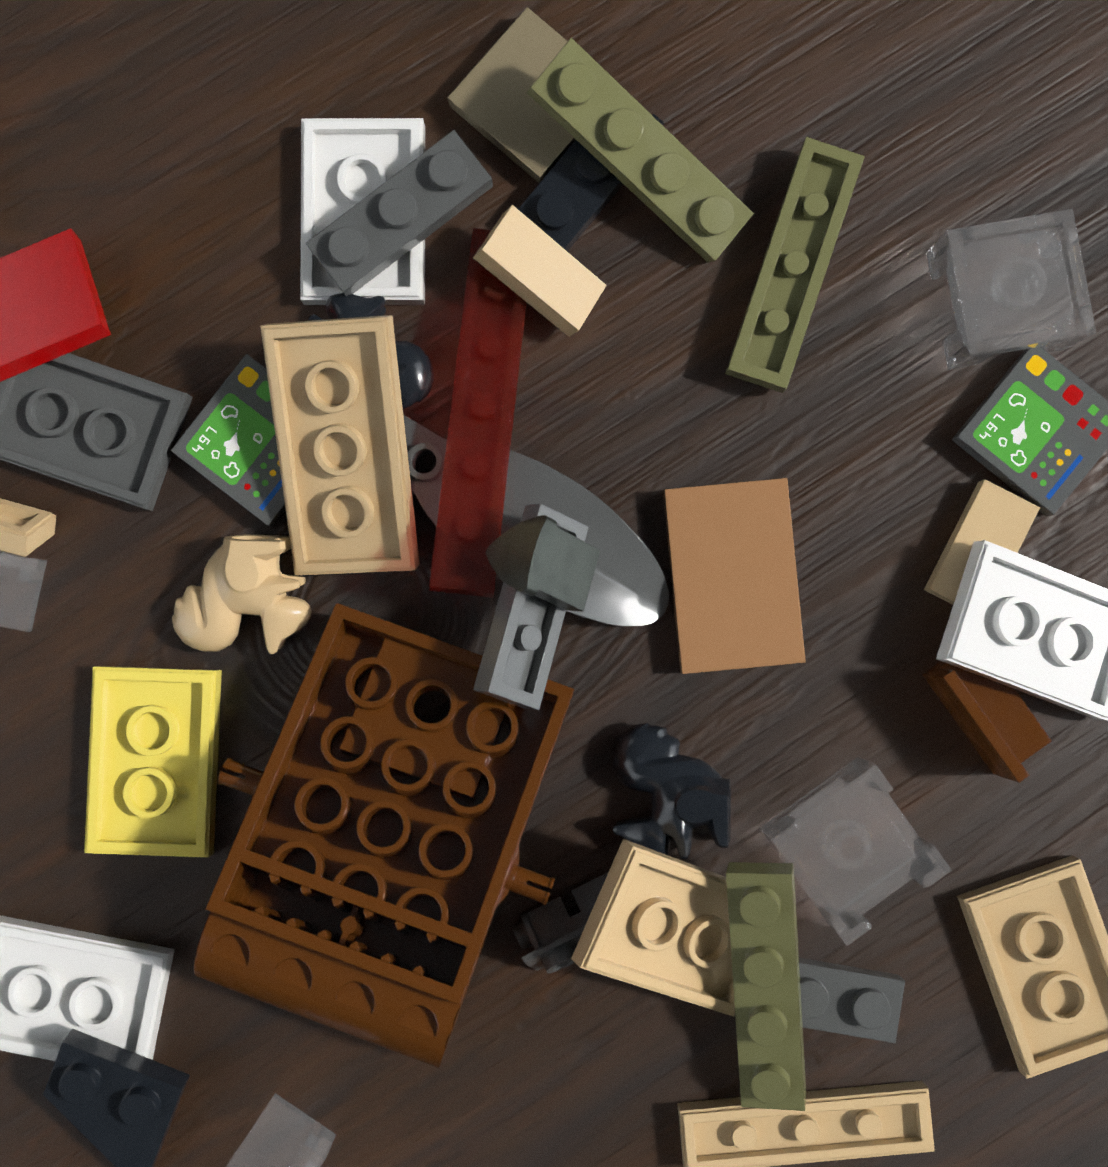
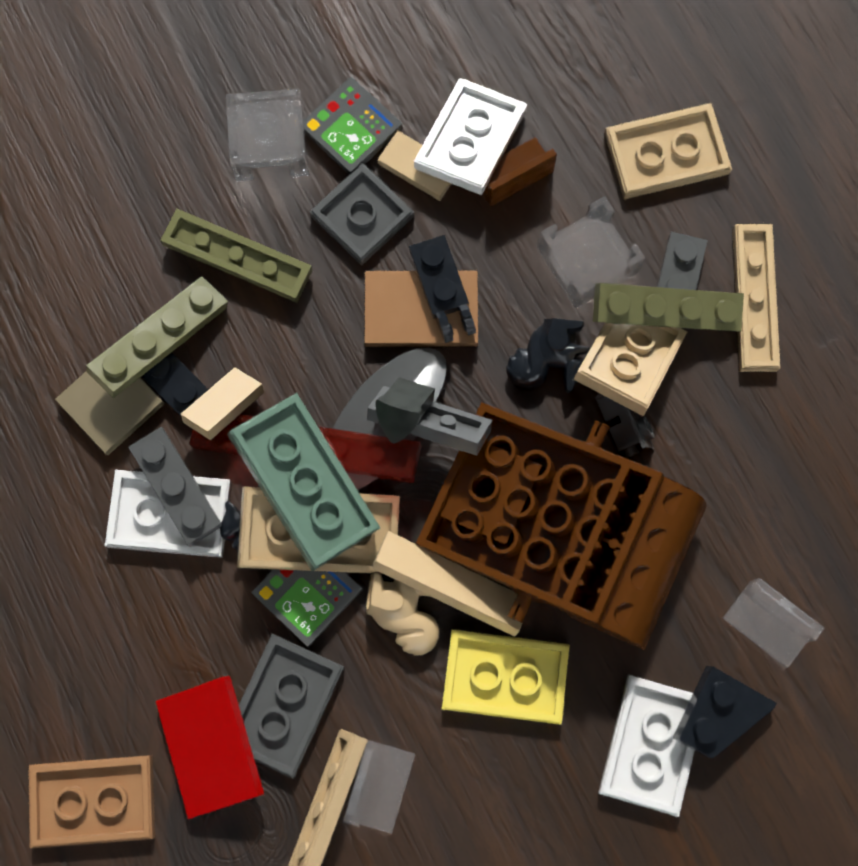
camera: 85 degrees left, 10 degrees down
(281, 651) = (446, 582): none -> tan tile
(408, 412) = (303, 481): none -> sand green tile
(774, 606) = (441, 284): none -> black hinge
(888, 463) = (362, 214): none -> dark grey tile

